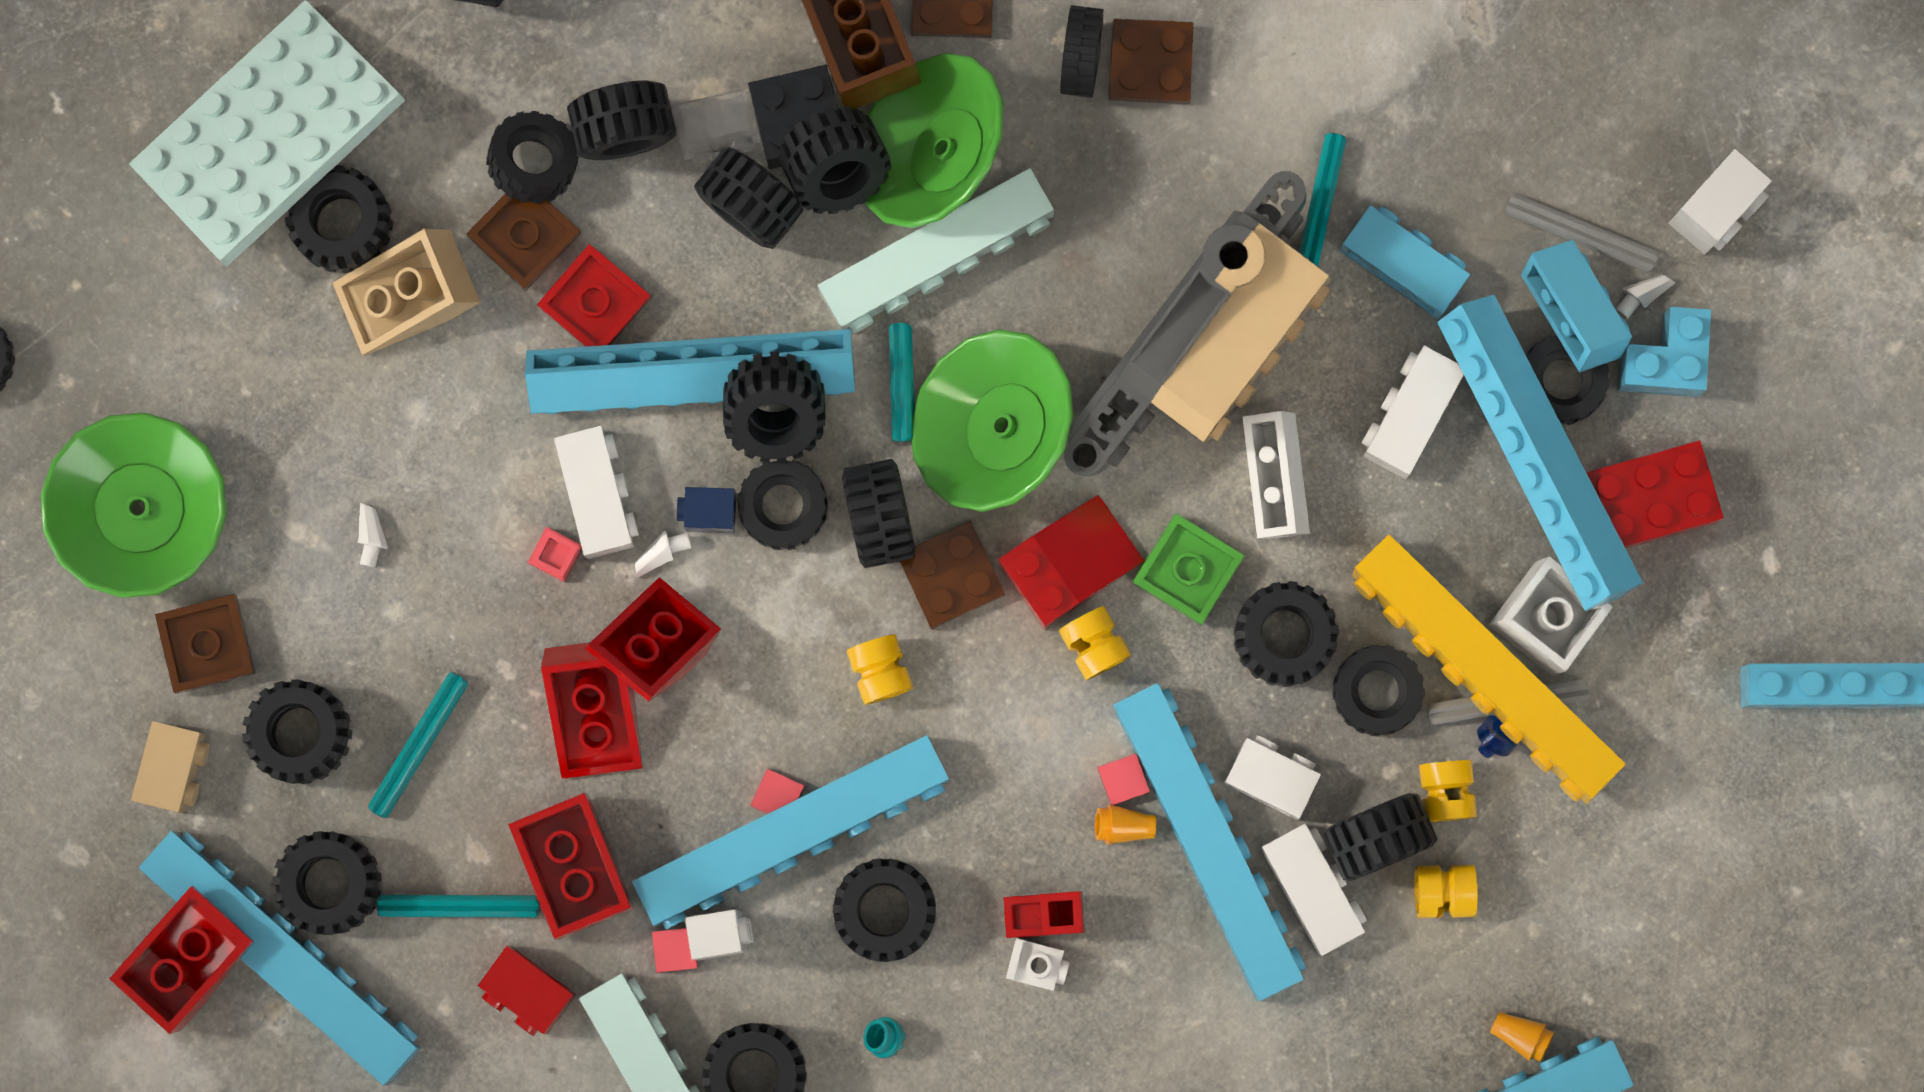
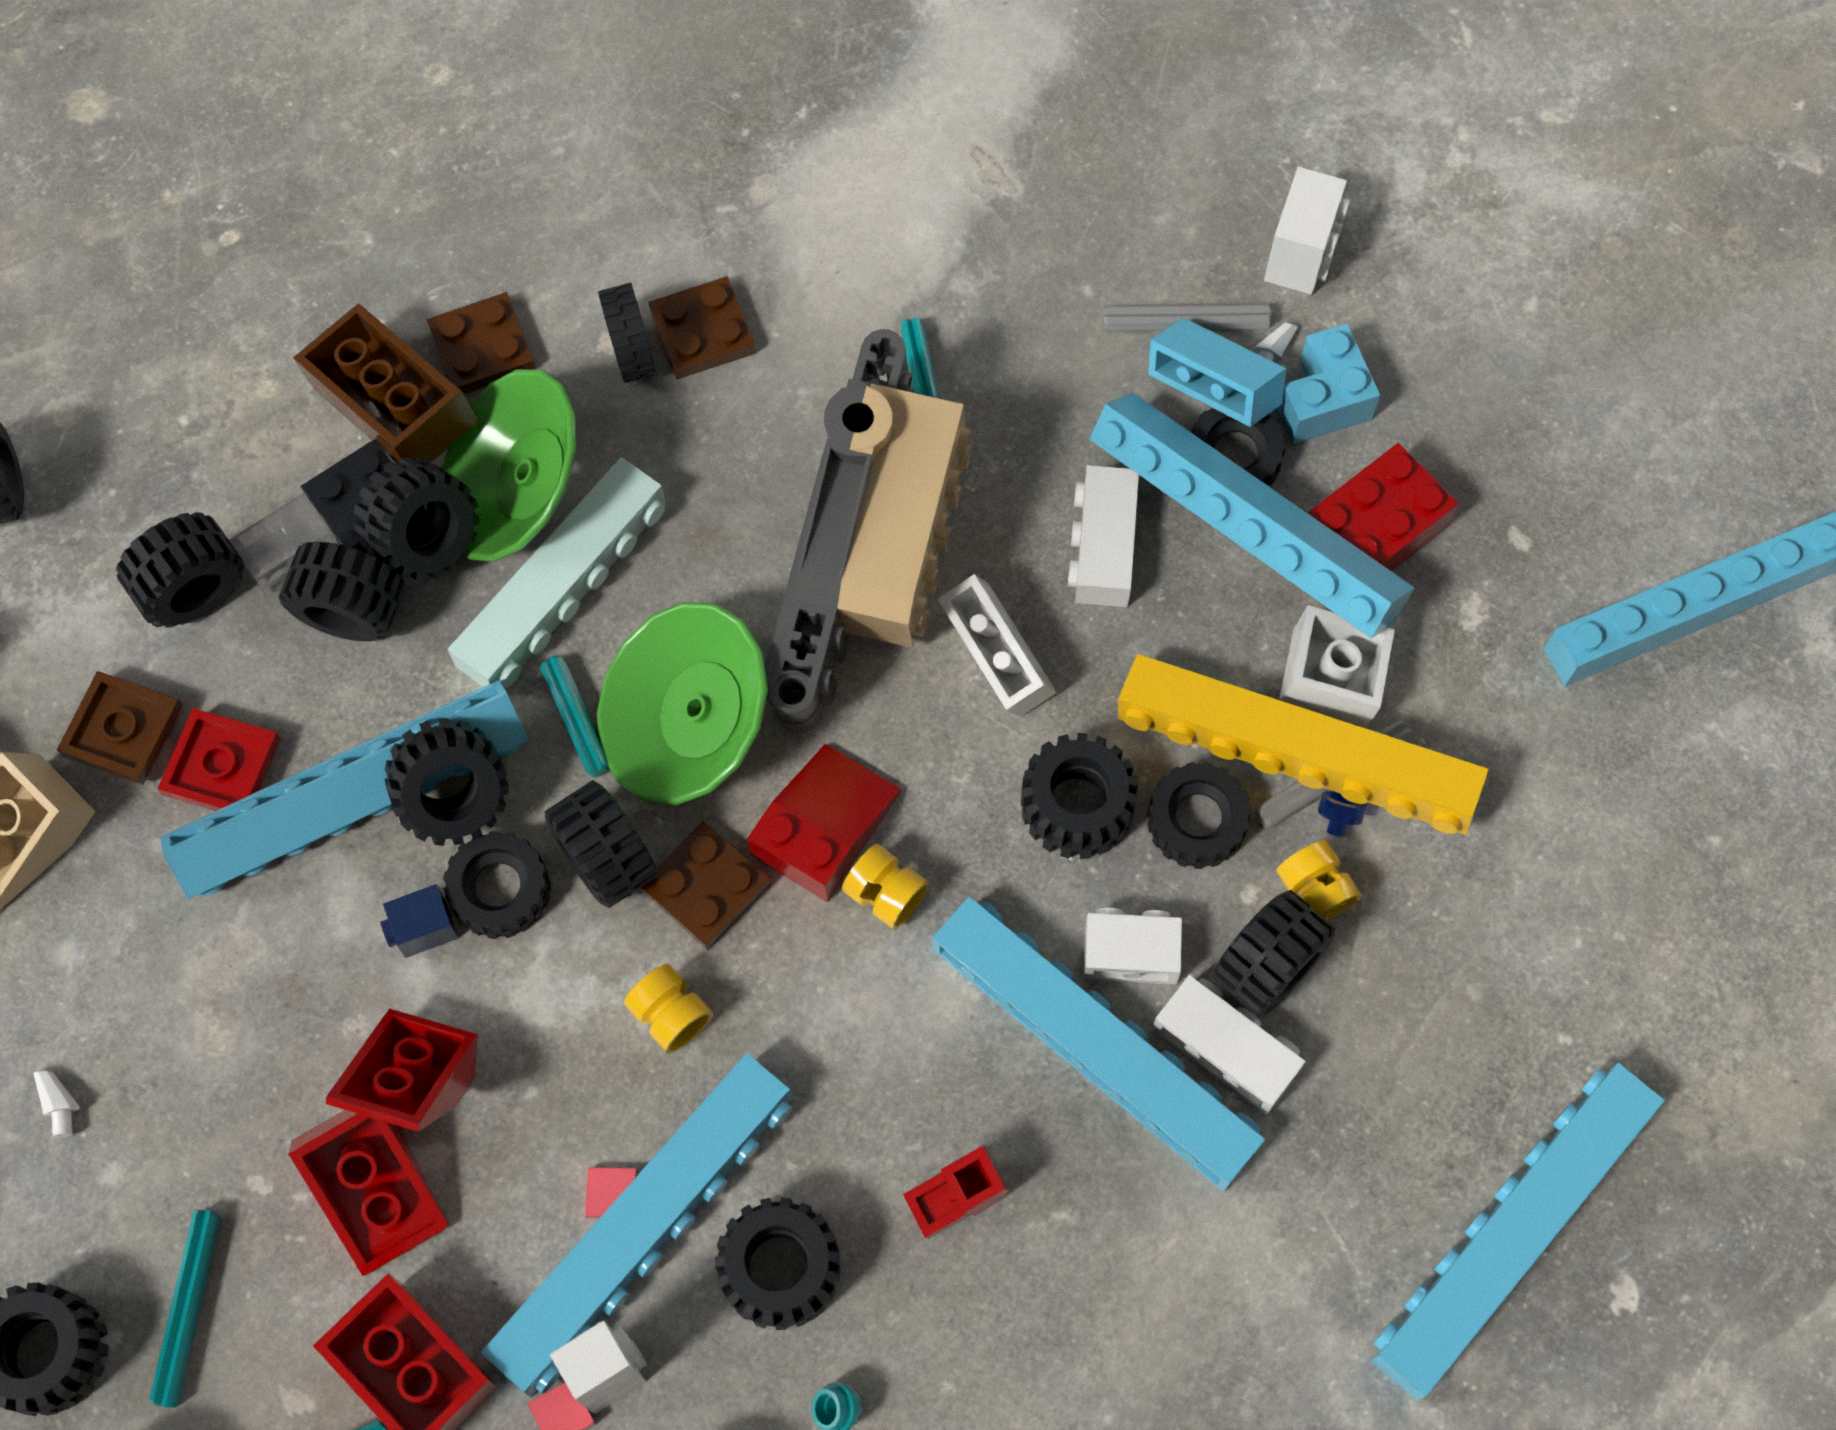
camera: 25 degrees left, 15 degrees down
(526, 185) = (107, 670): black tyre -> none
(555, 554) = (270, 1038): coral tile -> none
(596, 492) = (290, 953): white brick -> none
(661, 552) = (385, 988): white bar -> none
(1020, 965) = (959, 1268): white brick -> none
(1123, 779) = (977, 1017): coral tile -> none
(1123, 825) = (997, 1063): light orange cone -> none
(1188, 569) = (949, 776): bright green plate -> none
(1405, 260) = (1031, 404): medium azure brick -> none
(1445, 891) = (1370, 984): yellow wheel -> none
(1523, 1035) = (1521, 1103): light orange cone -> none

